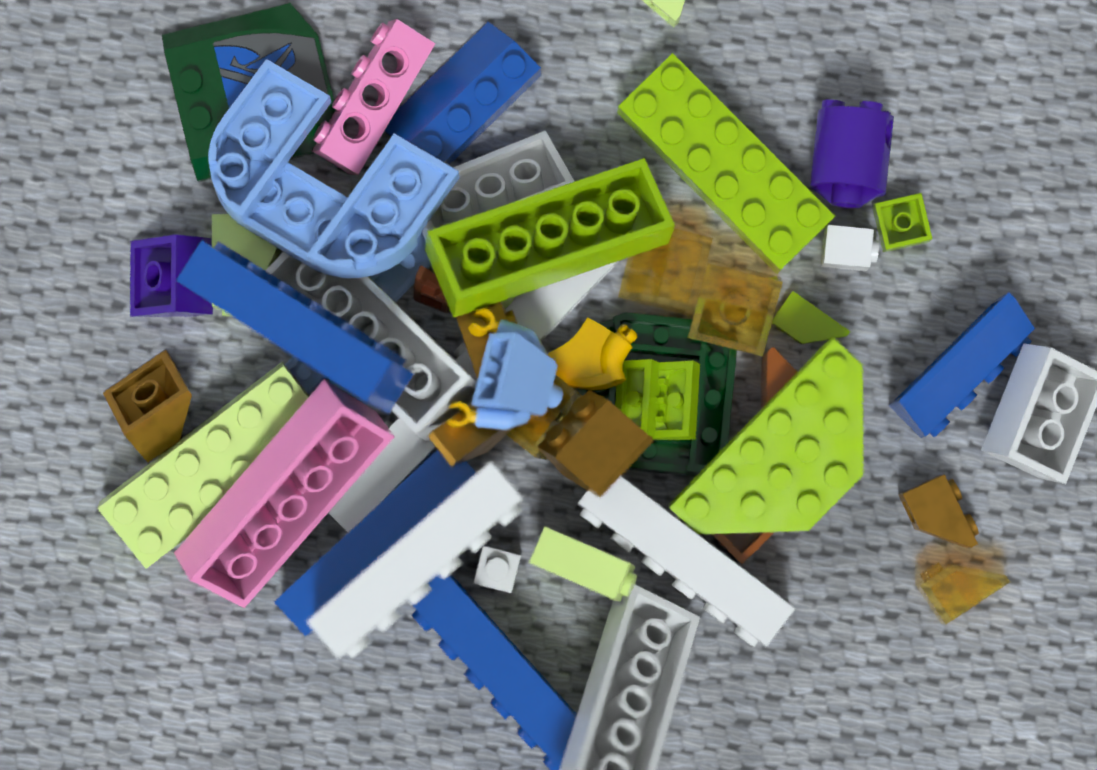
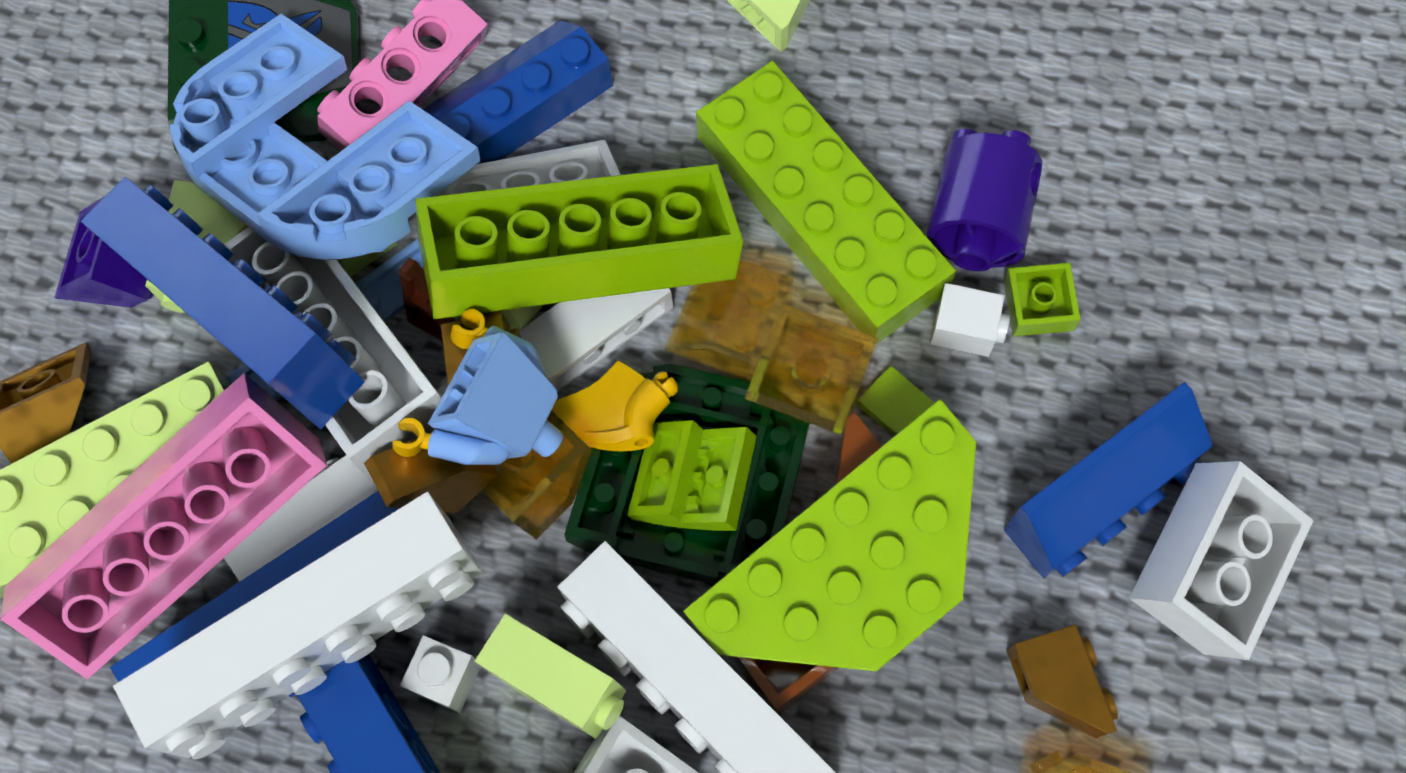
camera: 10 degrees right, 15 degrees down
(594, 443) = (591, 507): pearl gold slope -> none

